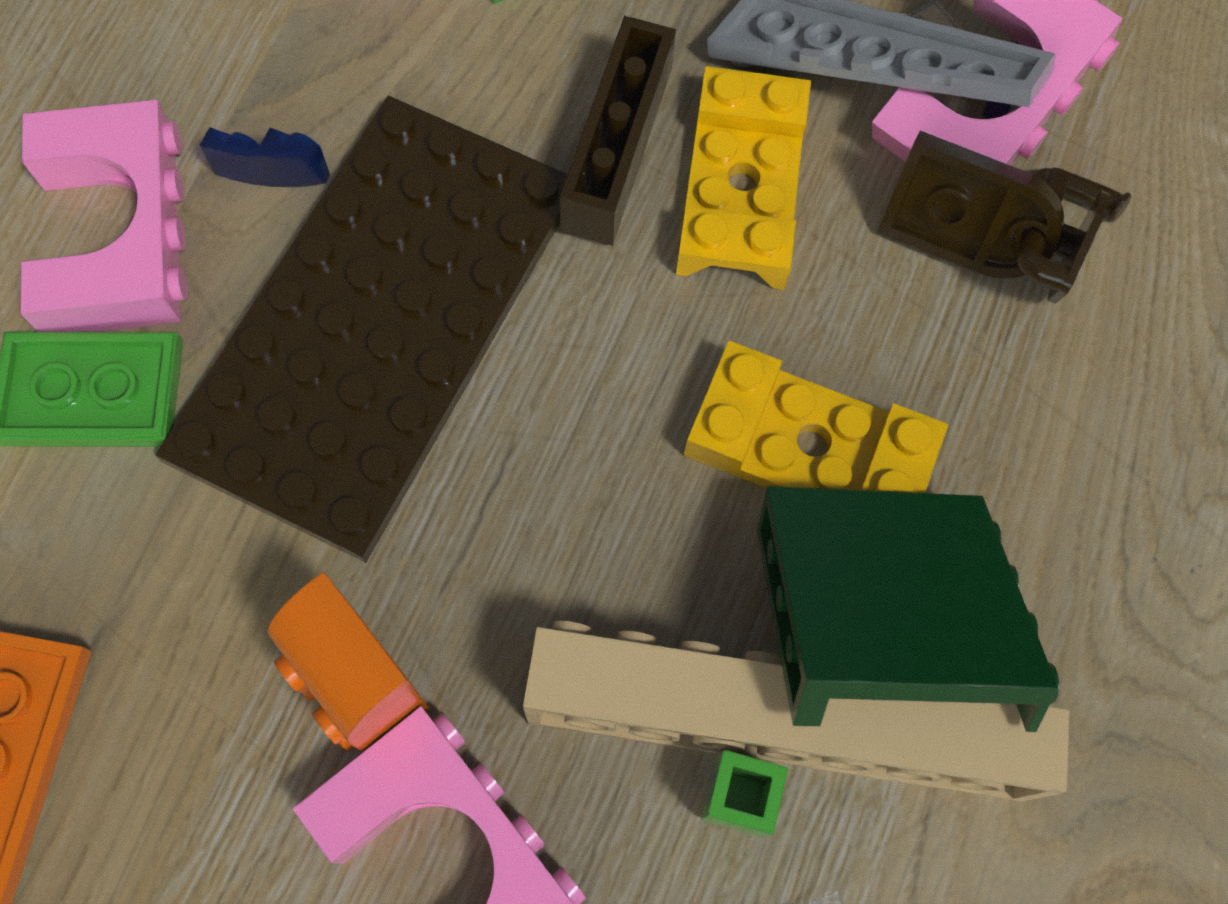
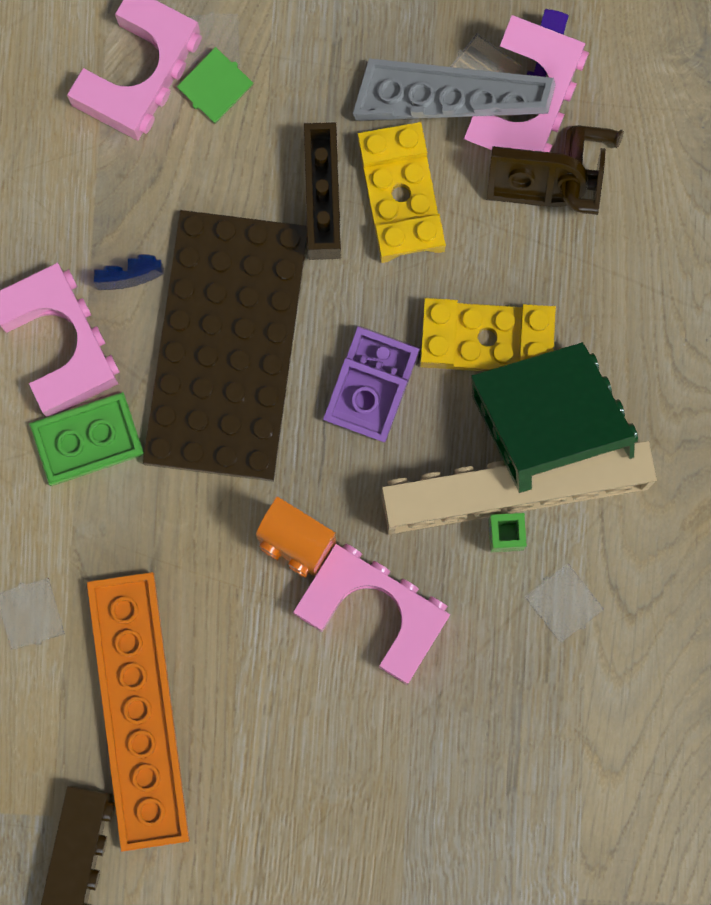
camera: 15 degrees left, 10 degrees up
(590, 452) = (371, 383): none -> medium lavender slope

